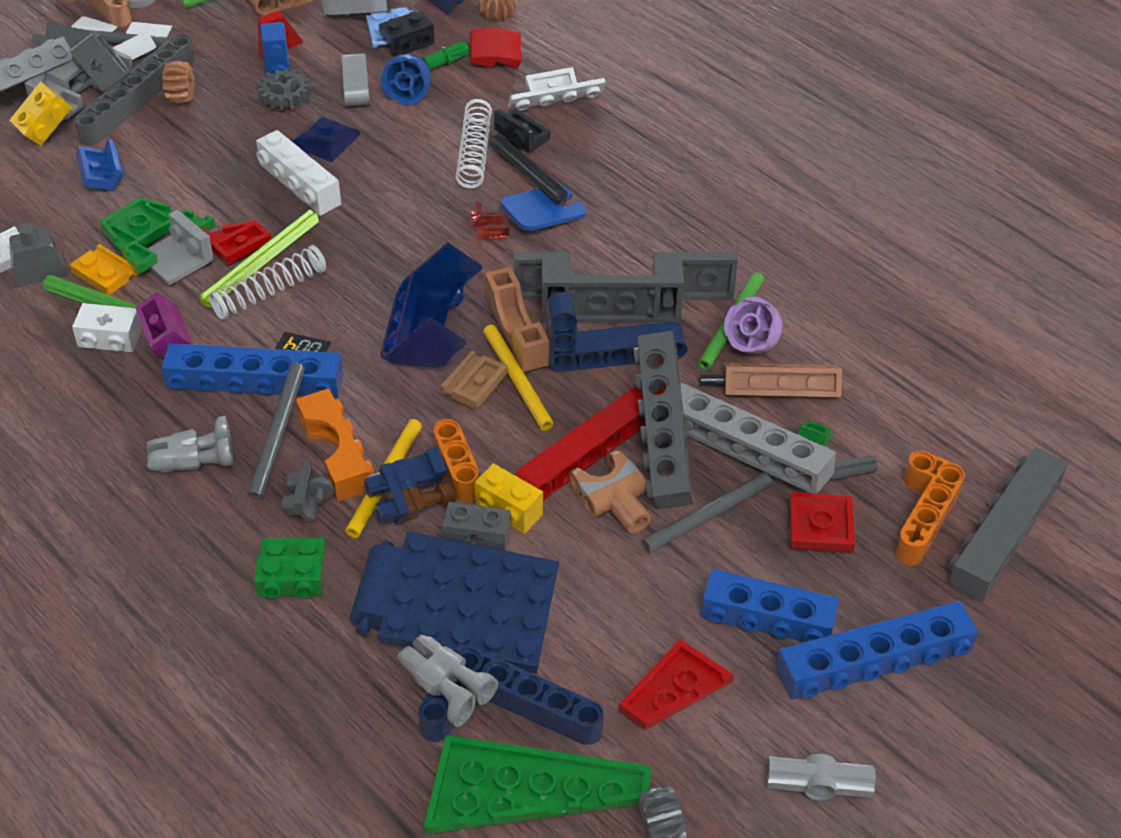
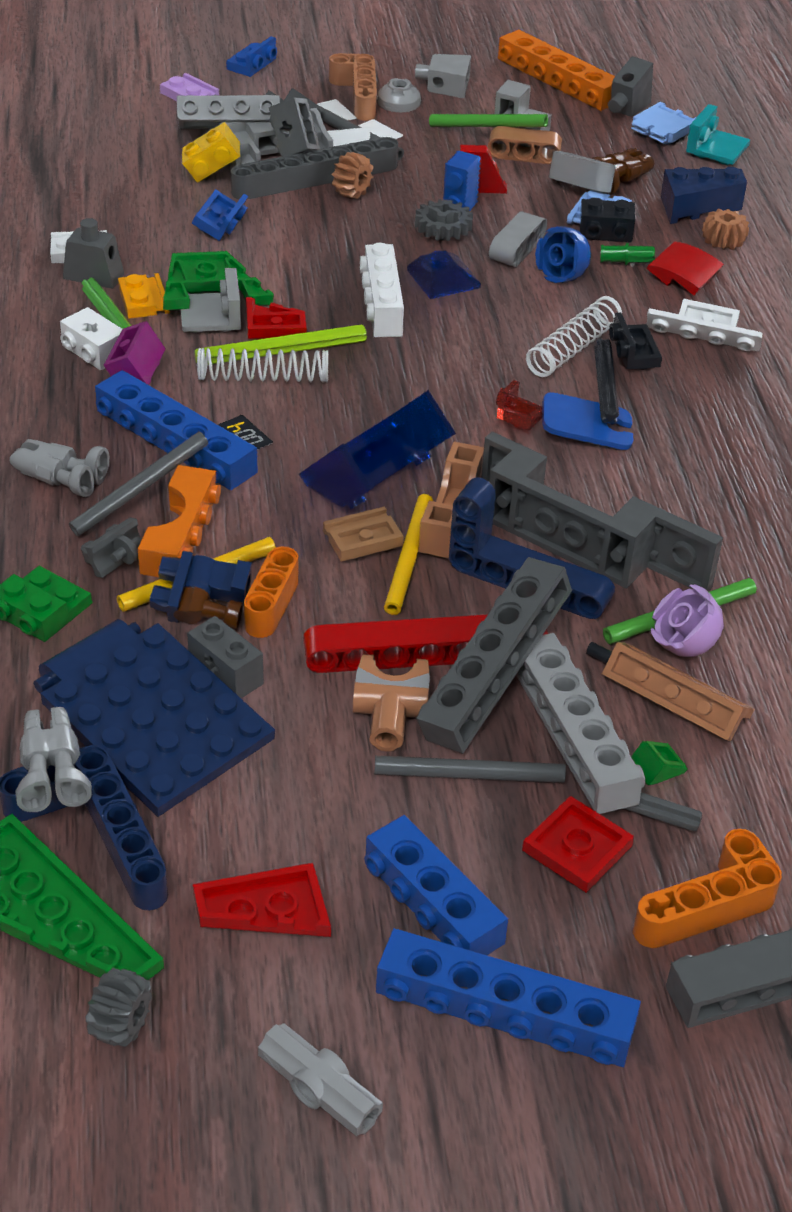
camera: 35 degrees right, 5 degrees down
(506, 491) = (283, 648): yellow brick -> none

